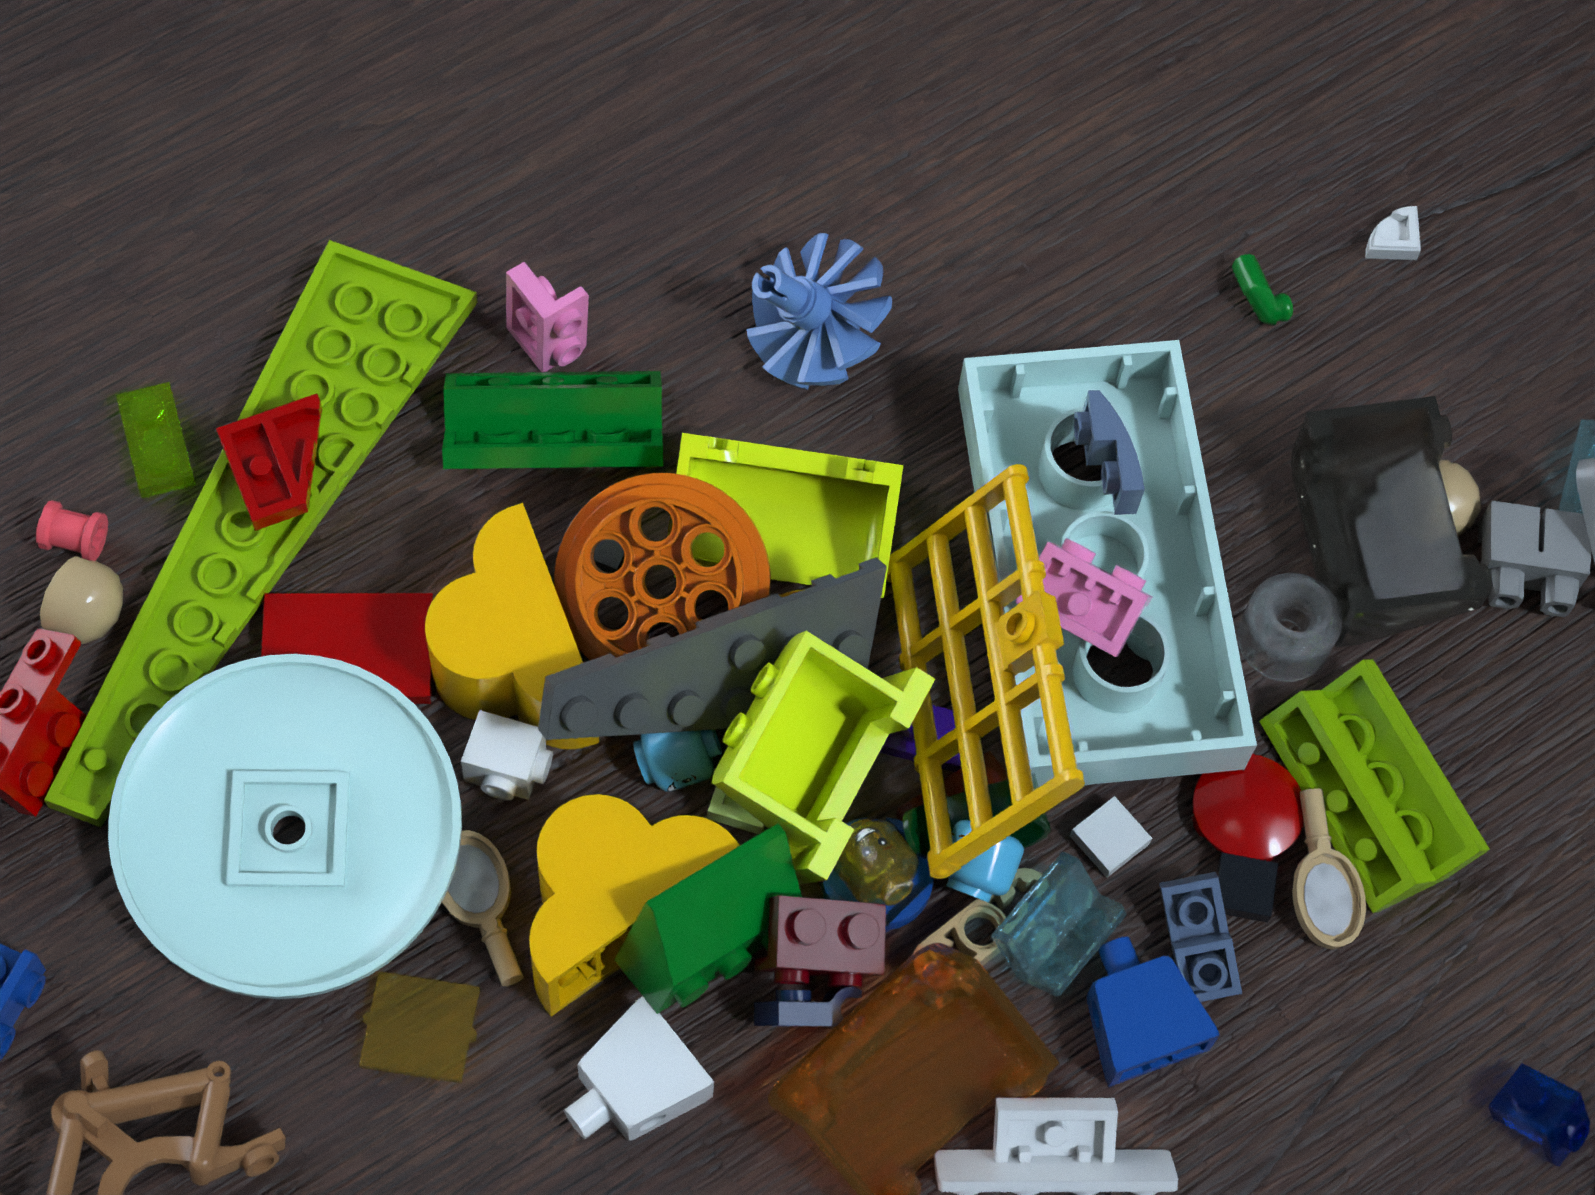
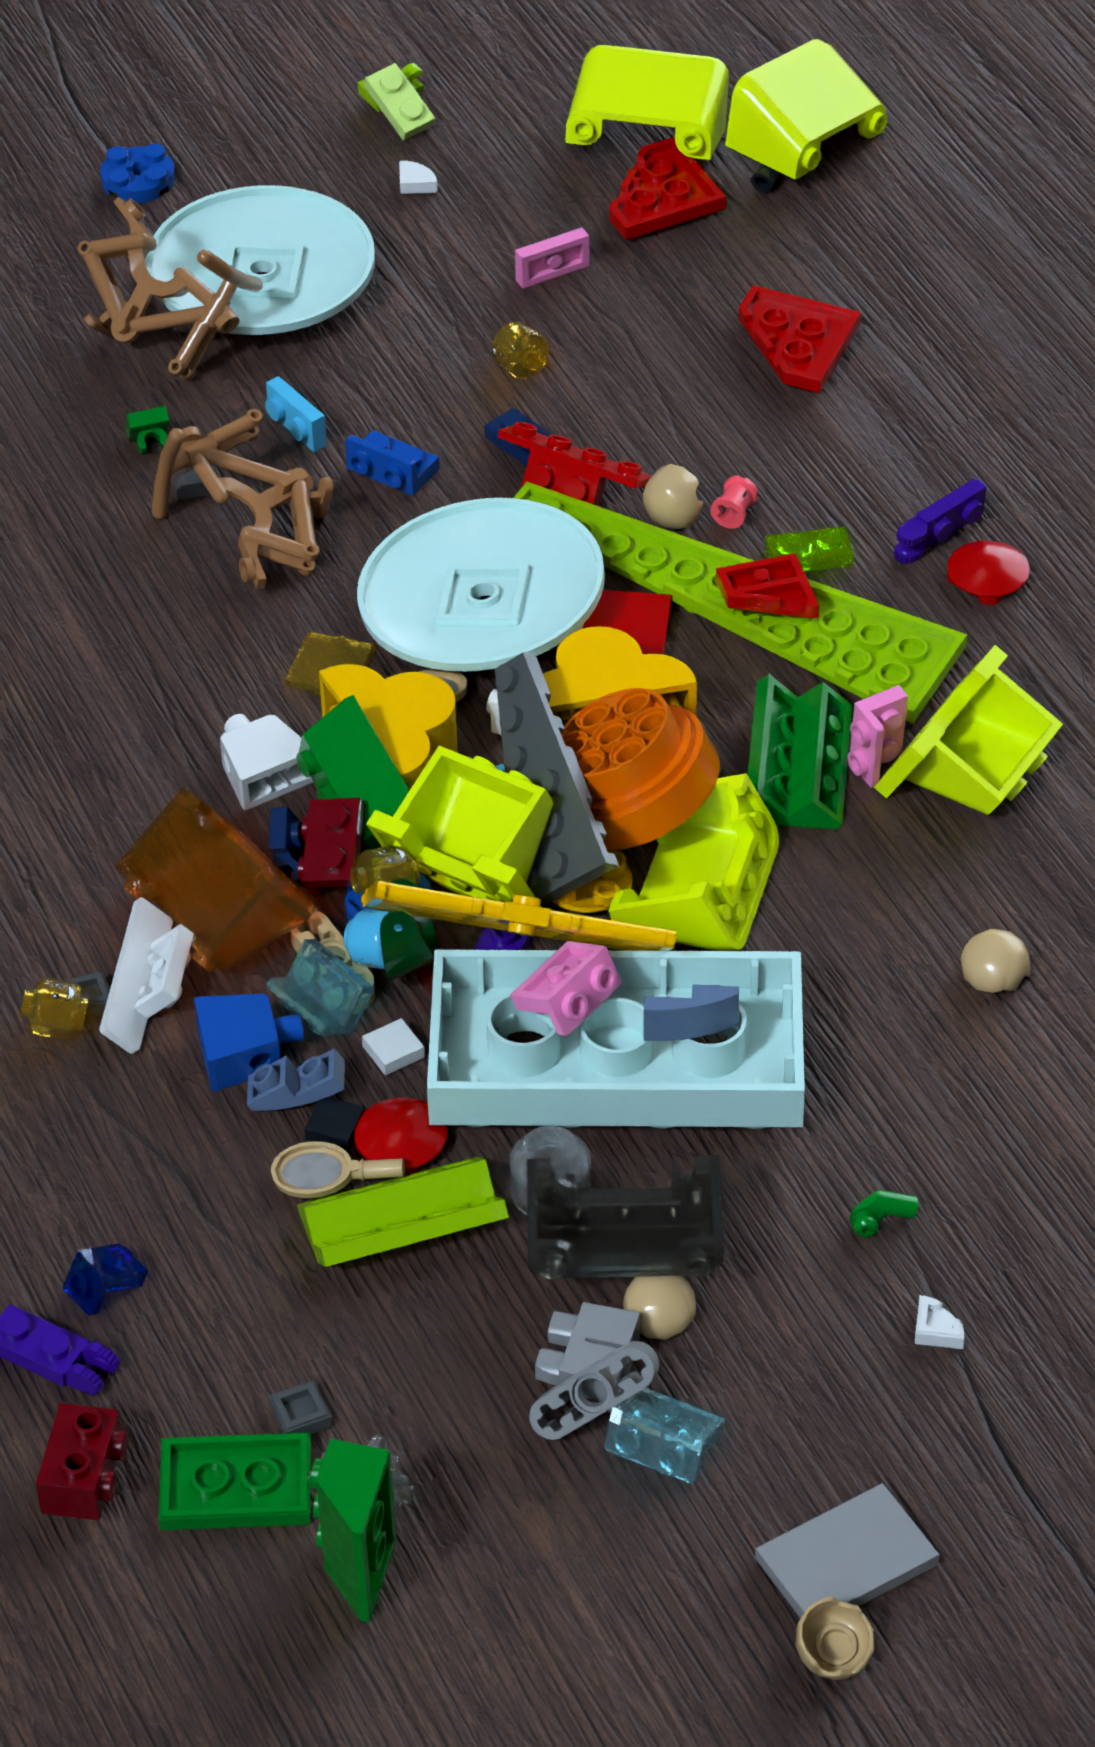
camera: 105 degrees right, 20 degrees down
(107, 283) = (940, 520): none -> dark purple hinge
(186, 230) = (988, 570): none -> red dish
(519, 206) = (977, 741): none -> neon yellow windscreen
(804, 322) = (870, 888): medium blue piece -> none
(872, 196) = (995, 961): none -> tan hair

